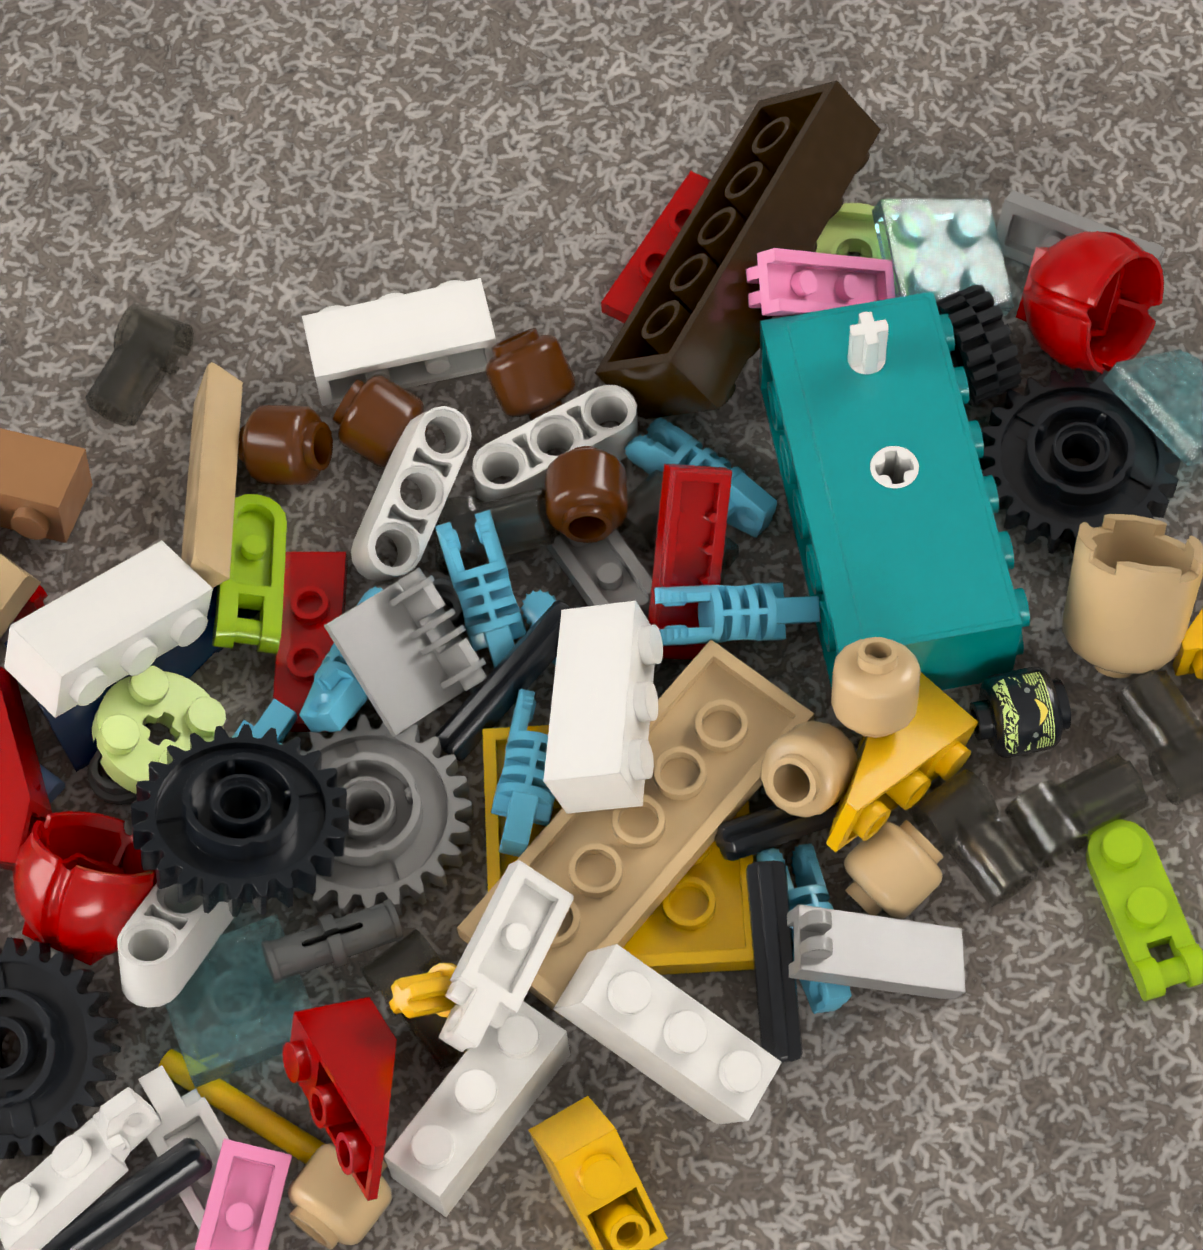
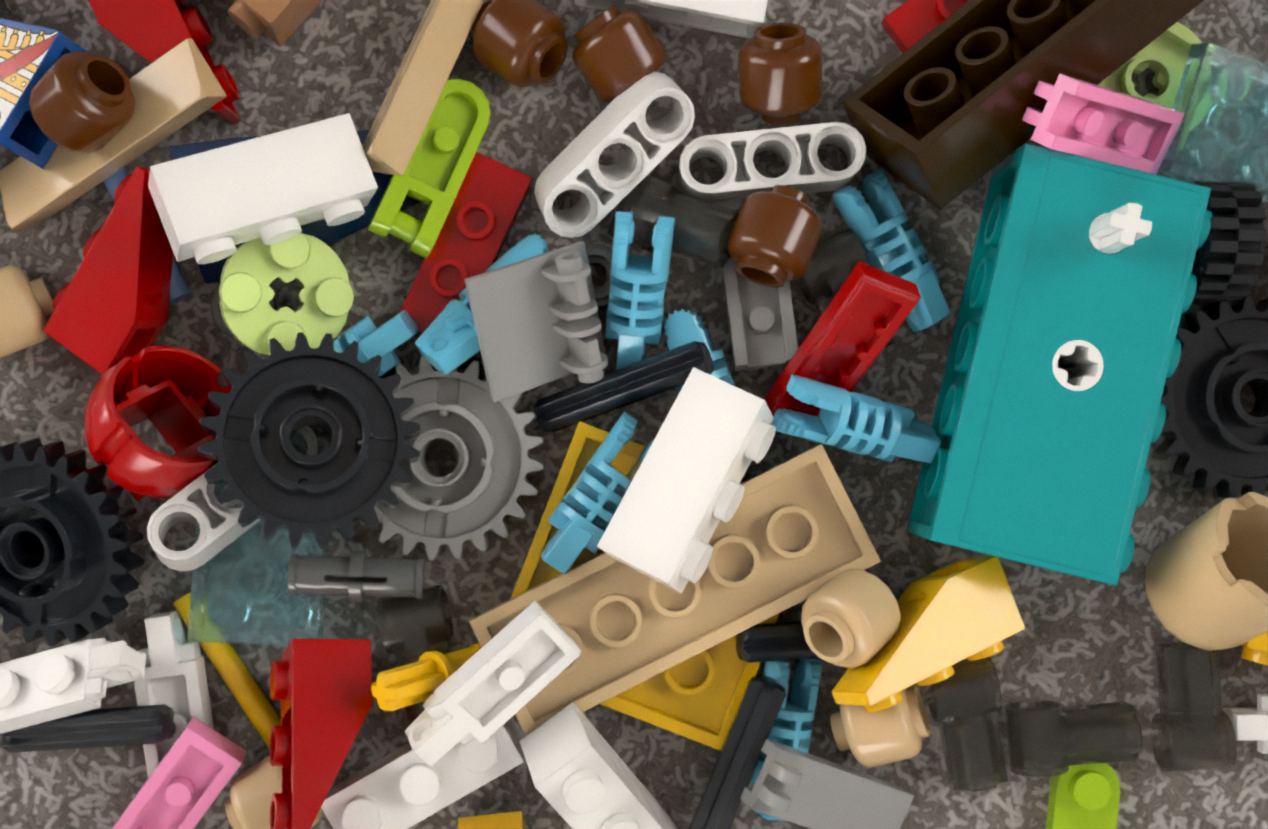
camera: 20 degrees right, 25 degrees up
(875, 686) = (949, 589): tan head -> none
(1021, 712) = (1069, 628): black head -> none

